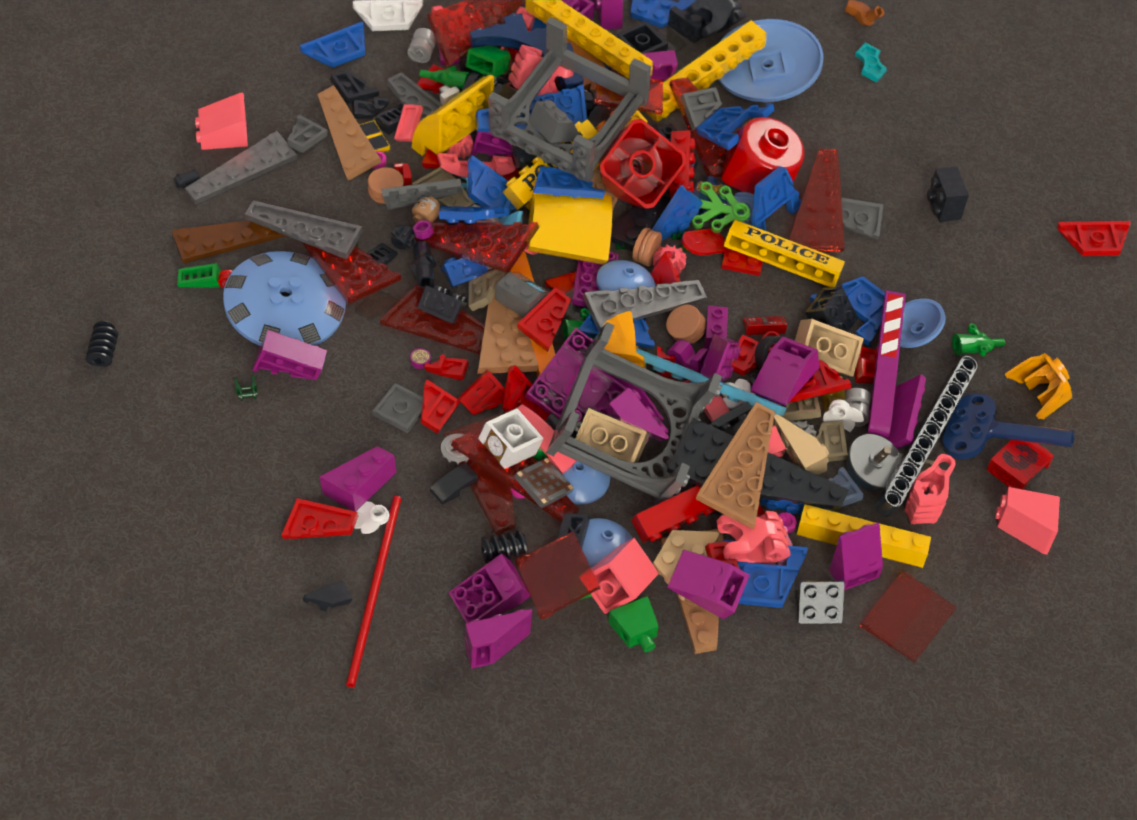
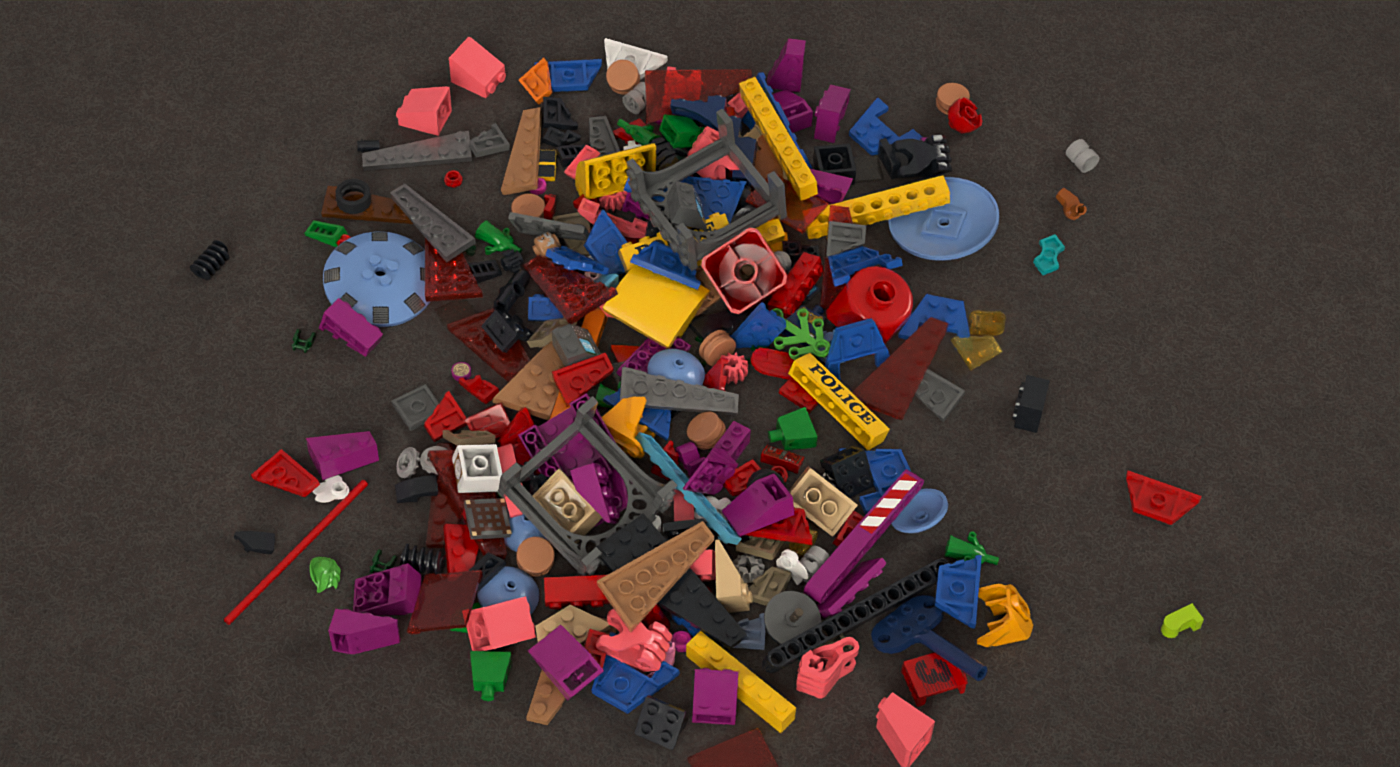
camera: 30 degrees right, 0 degrees up
(206, 219) = (353, 185): none -> black tyre
(249, 69) = (476, 68): none -> coral slope
(292, 181) = (453, 179): none -> red plate
(315, 62) = (538, 81): none -> orange wing
(373, 221) = (500, 240): none -> green piece
(395, 30) = (622, 76): none -> nougat head
(417, 598) = (324, 573): none -> bright green hat
(423, 229) = (530, 260): magenta tile -> none
(423, 460) = (408, 457): none -> light grey gear
(458, 567) = (375, 560): none -> dark green piece
(474, 416) = (469, 437): none -> dark tan wing
(531, 522) = (459, 548): none -> red wing
(608, 500) = (535, 556): none -> nougat head
(762, 295) = (794, 431): none -> green torso
(825, 139) = (940, 308): none -> blue wing
(861, 139) = (988, 323): none -> clear yellow piece
(868, 165) = (976, 349): none -> clear yellow wing
(997, 377) = (959, 589): none -> blue wing

